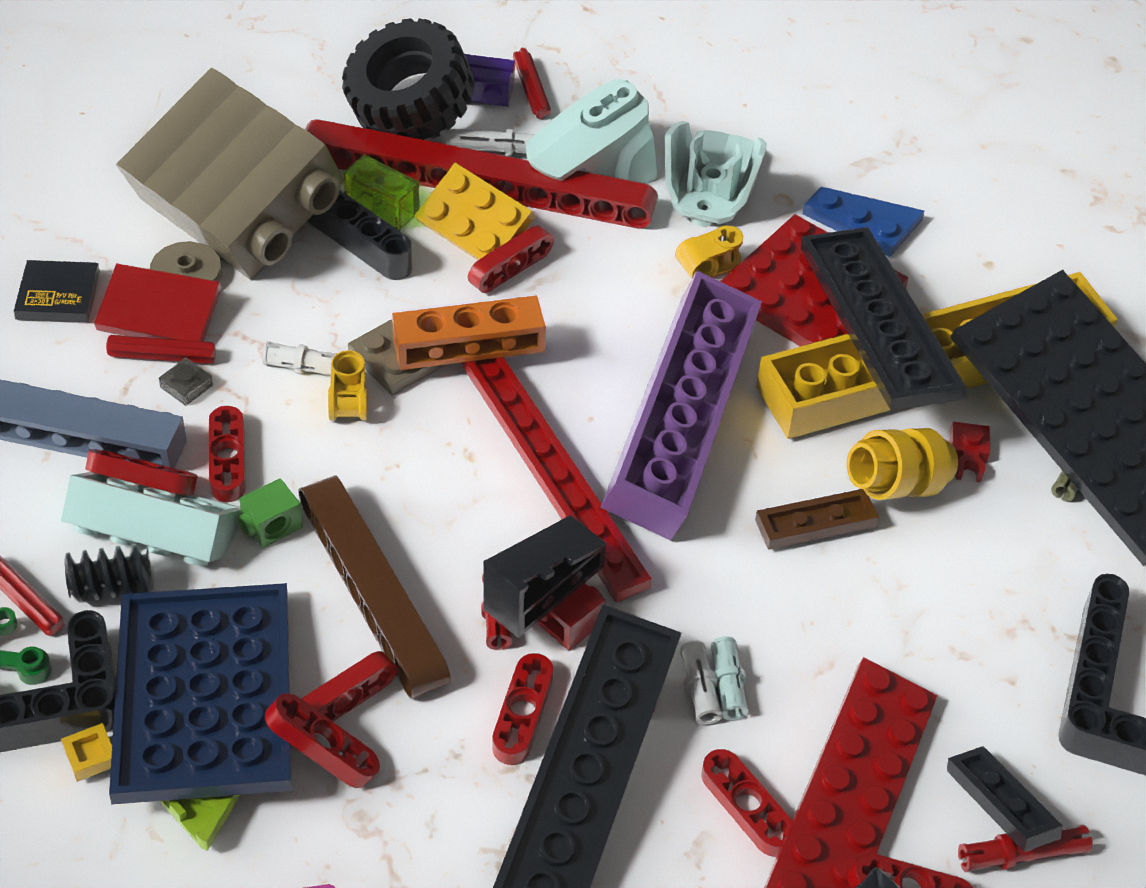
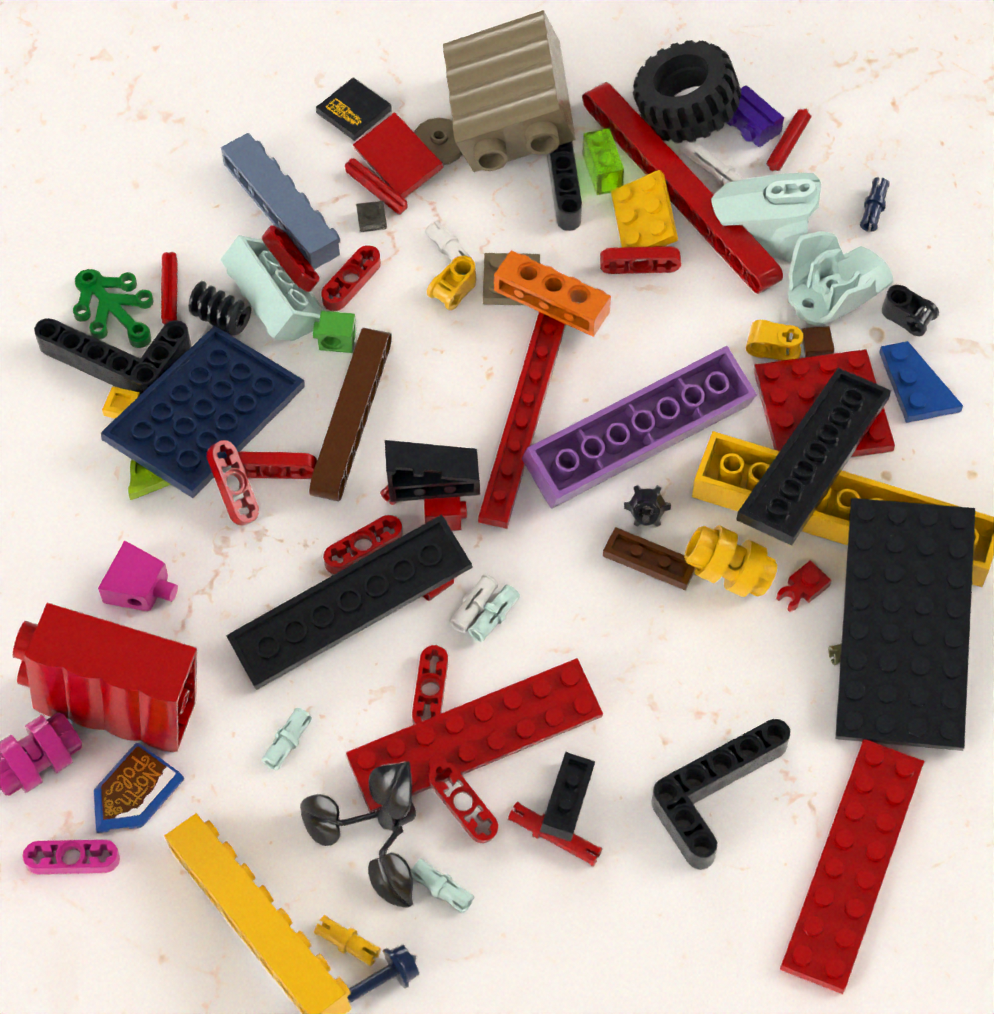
camera: 45 degrees right, 10 degrees up
(667, 93) = (874, 204): none -> dark blue pin
(753, 233) = (817, 341): none -> reddish brown tile
(766, 471) = (639, 506): none -> black rock
(790, 158) = (908, 309): none -> black piece

